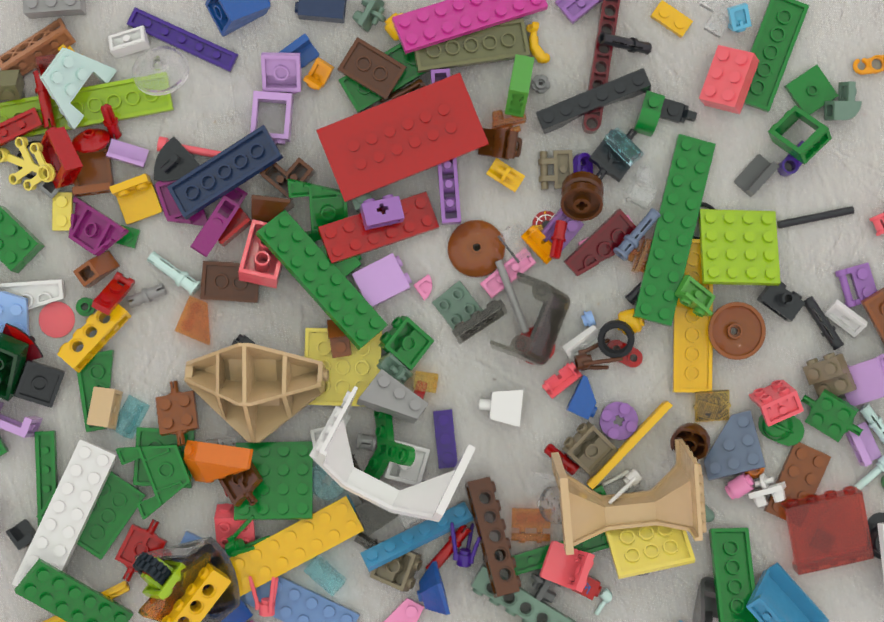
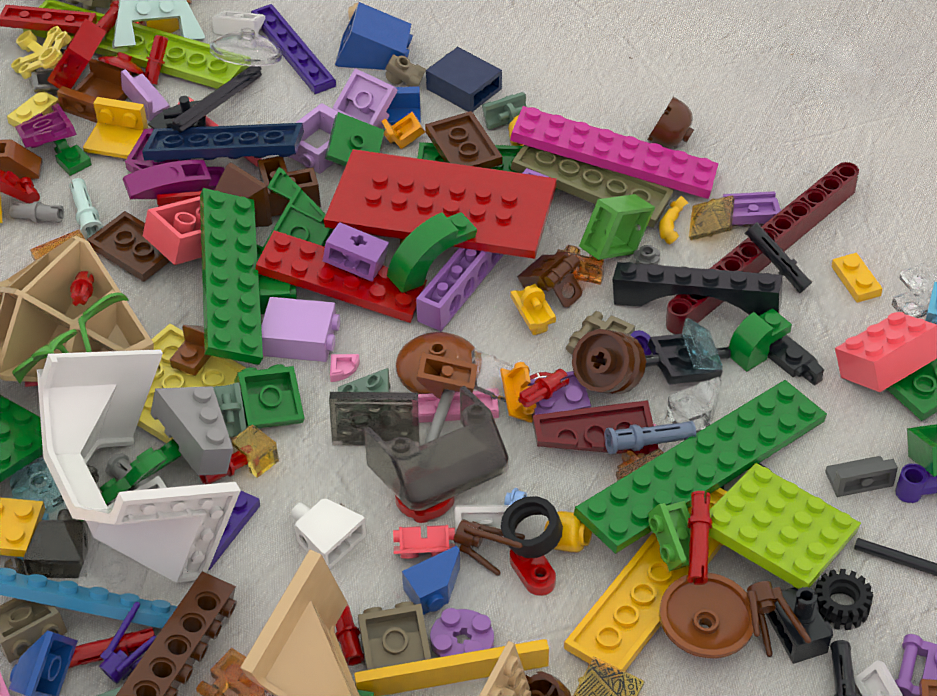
camera: 35 degrees right, 40 degrees down
(182, 135) = (216, 98): none -> black axle
(270, 372) = (82, 288): none -> red axle
(280, 18) = (401, 70): none -> dark tan plate
(302, 112) = (349, 135): none -> green plate
(307, 436) = (56, 343): none -> bright green plant
(427, 182) = (424, 245): none -> green arch
(500, 268) = (445, 373): none -> dark orange slope
(560, 26) = (711, 217): none -> clear yellow piece
(708, 289) = (699, 537): none -> red pin
(761, 307) = (762, 601): none -> reddish brown plant
(804, 265) = (847, 585): none -> black tyre

